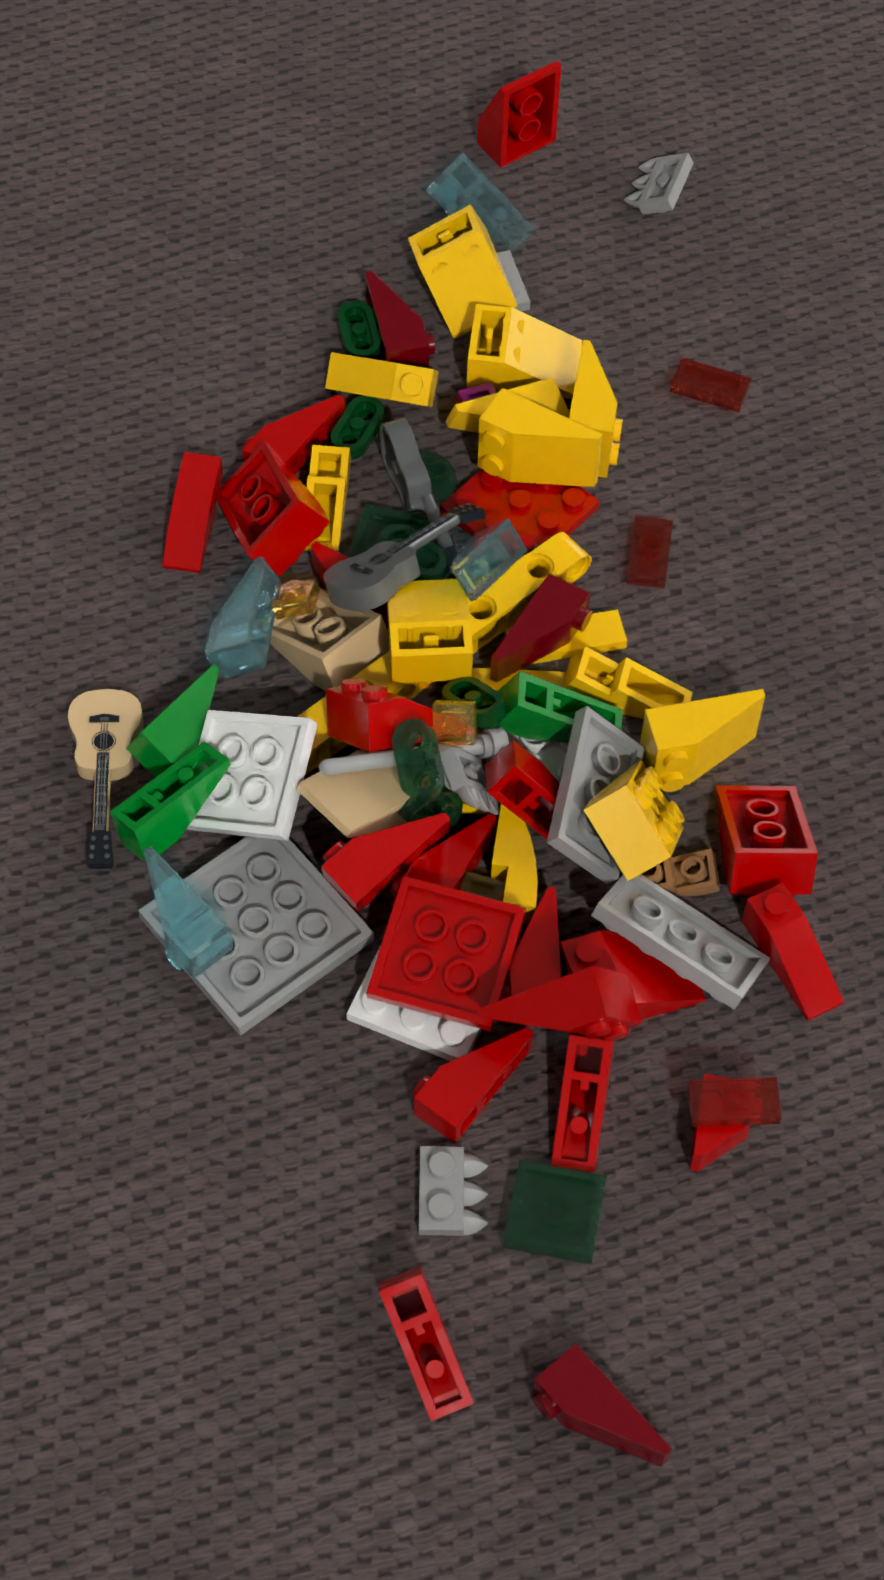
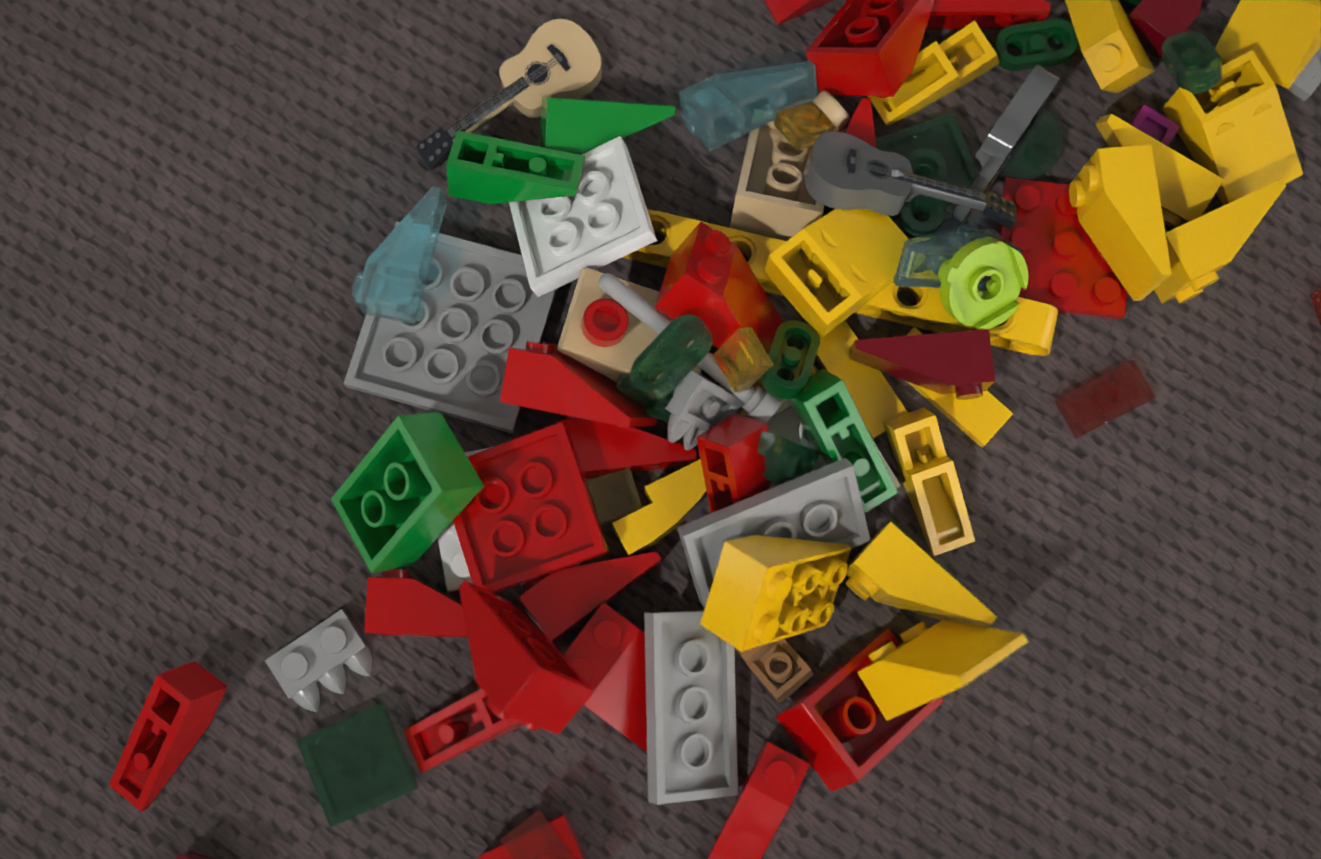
camera: 55 degrees right, 20 degrees up
(300, 571) = (832, 110): none -> tan tile
(354, 792) = (605, 322): none -> red tile
(372, 1017) = (406, 491): none -> green brick
(456, 338) = (1192, 61): none -> clear green plate
(515, 551) = (963, 273): none -> lime plate
(547, 749) = (785, 458): none -> clear green plate
(765, 755) = (933, 663): none -> yellow slope

